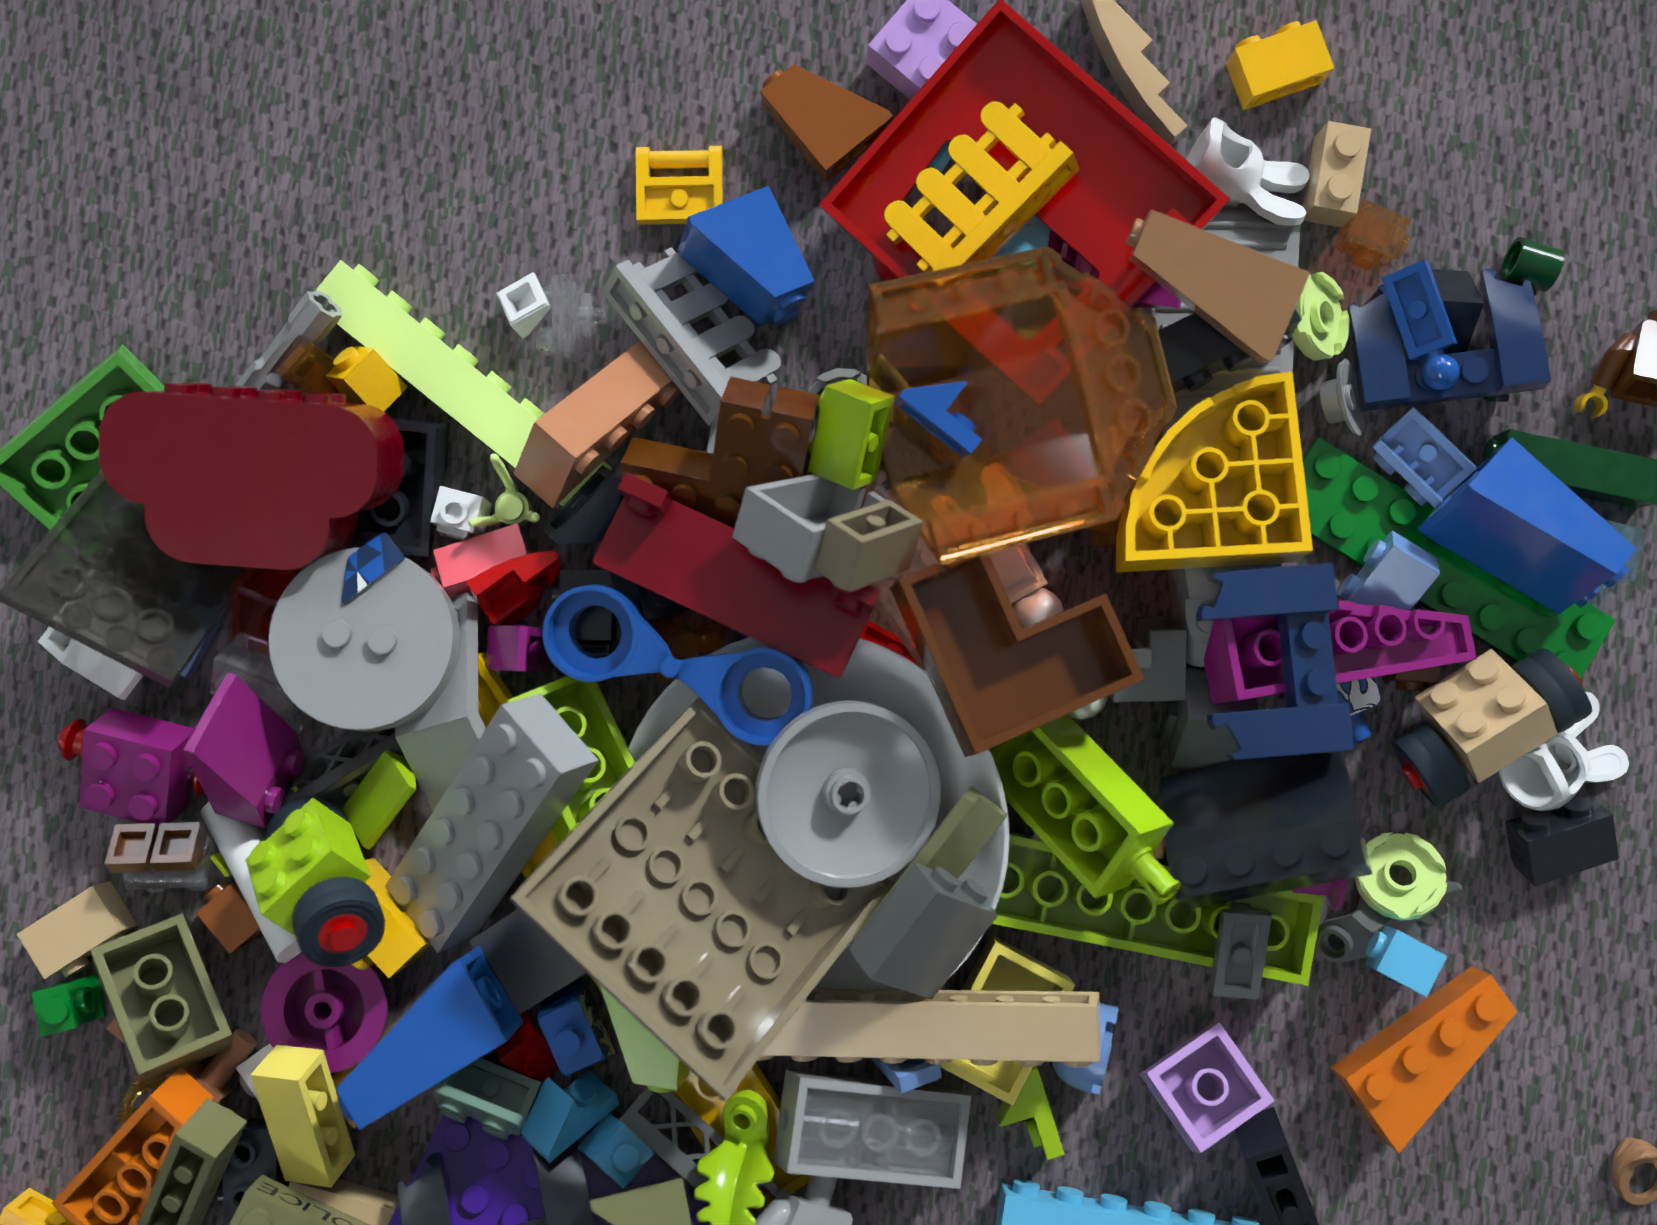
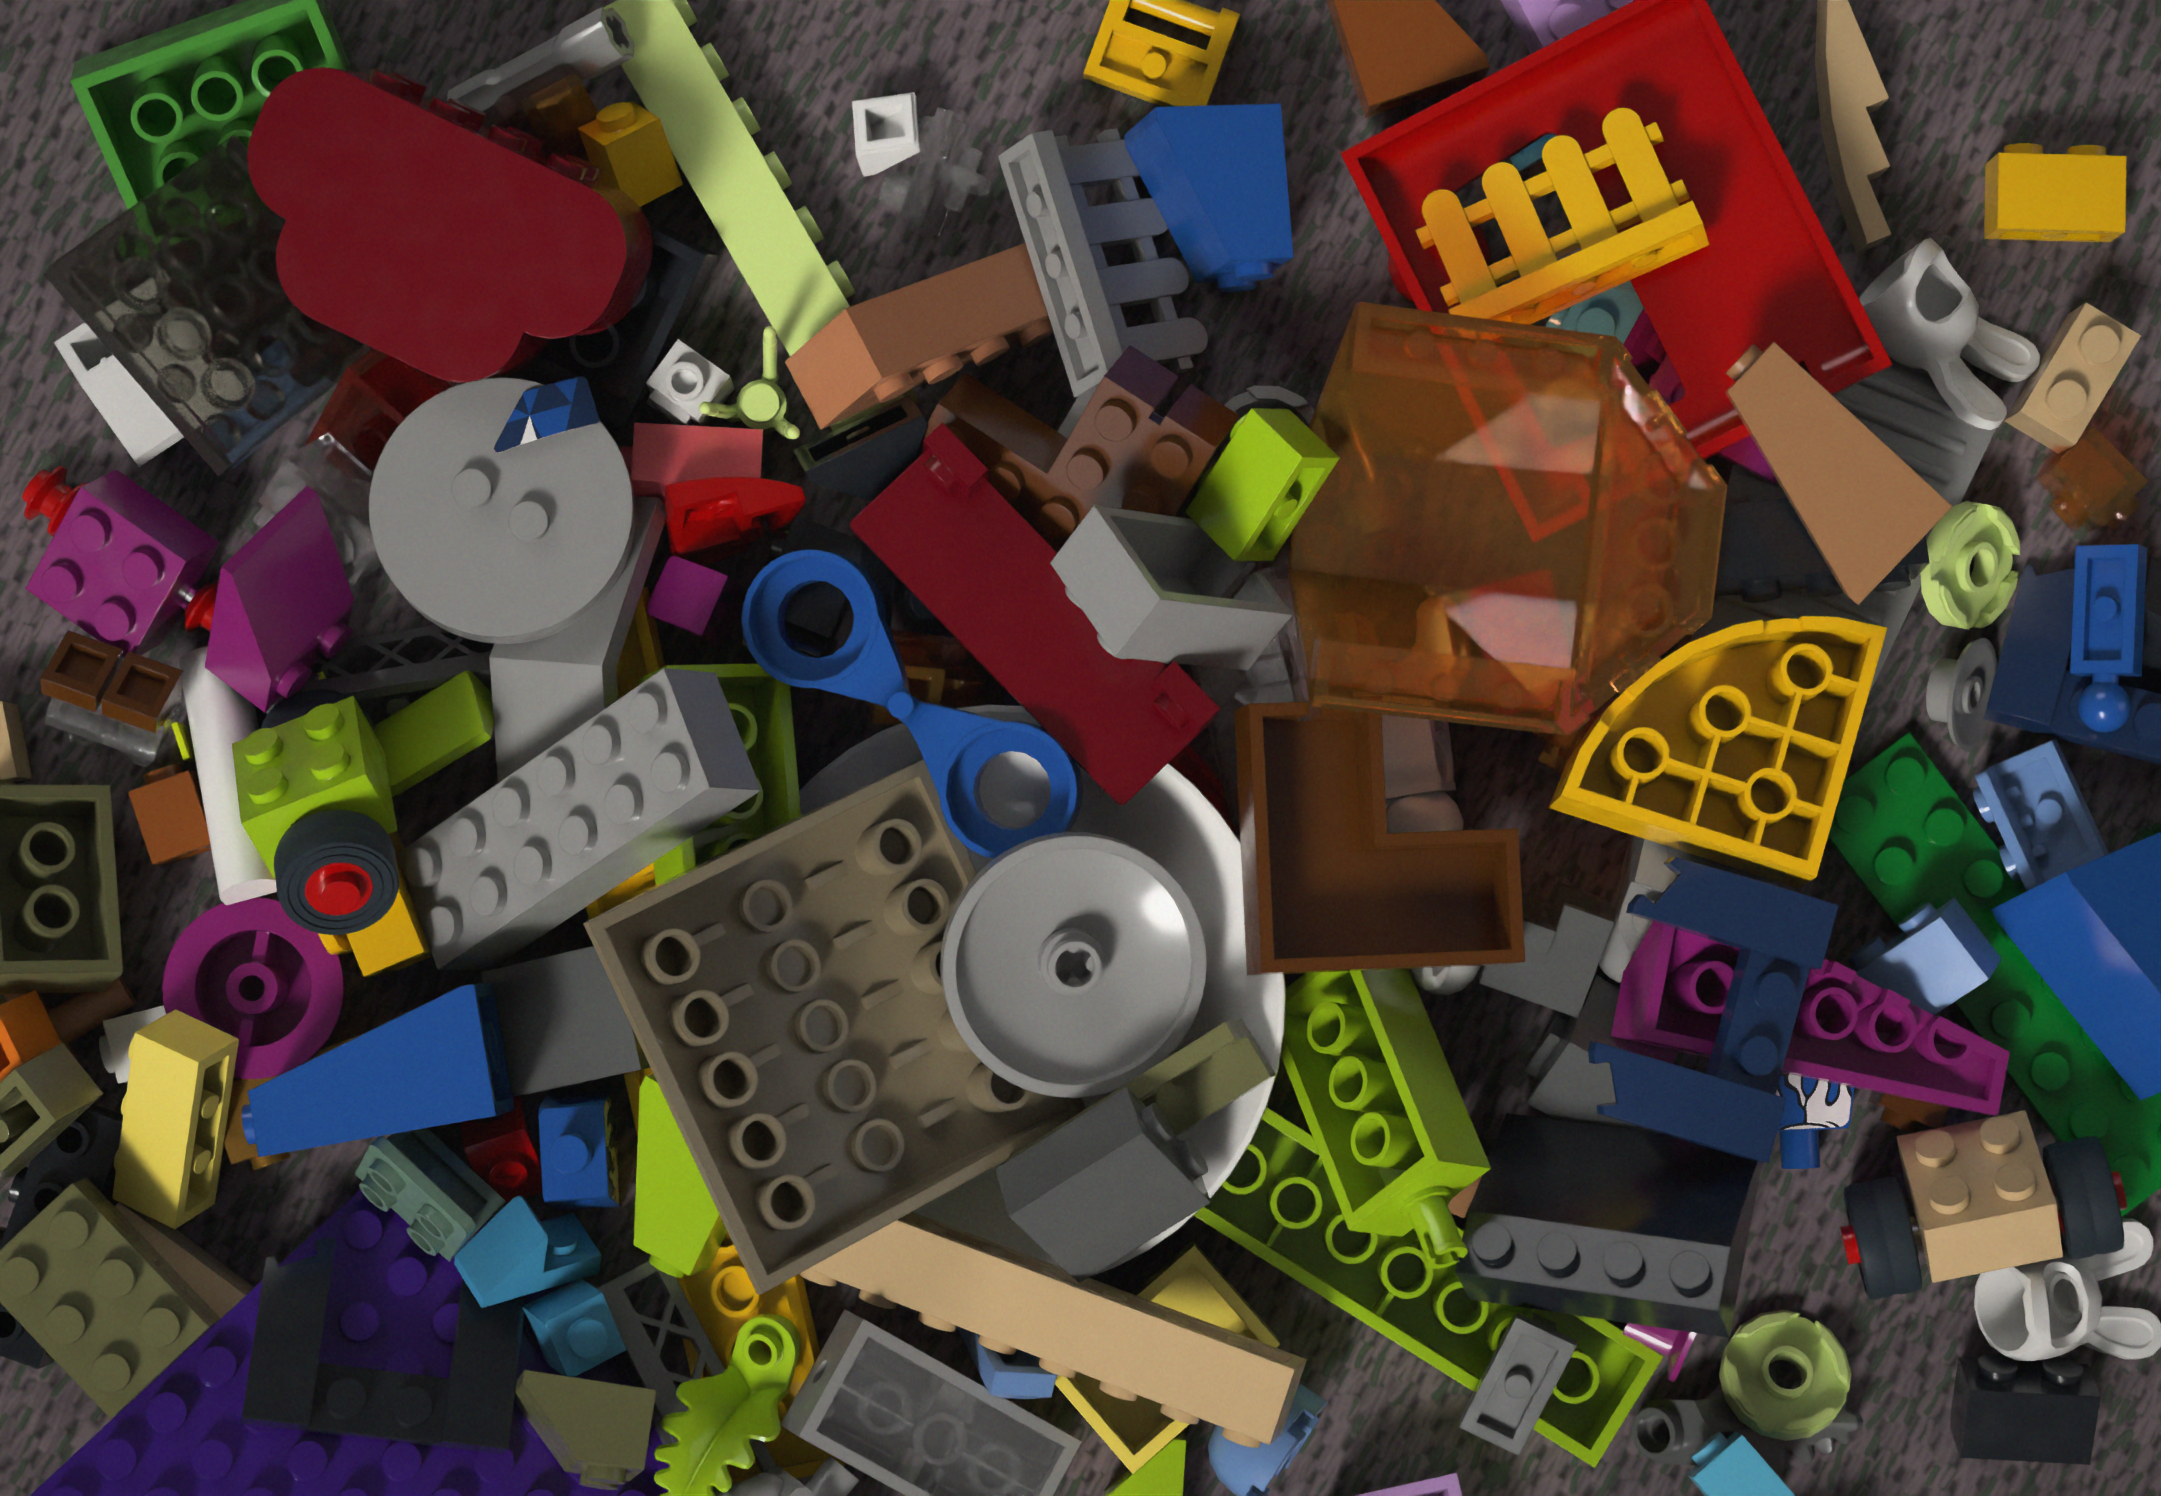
camera: 20 degrees right, 0 degrees up
(868, 545) = (1226, 643): dark tan brick -> none
(929, 409) = (1379, 491): blue slope -> none

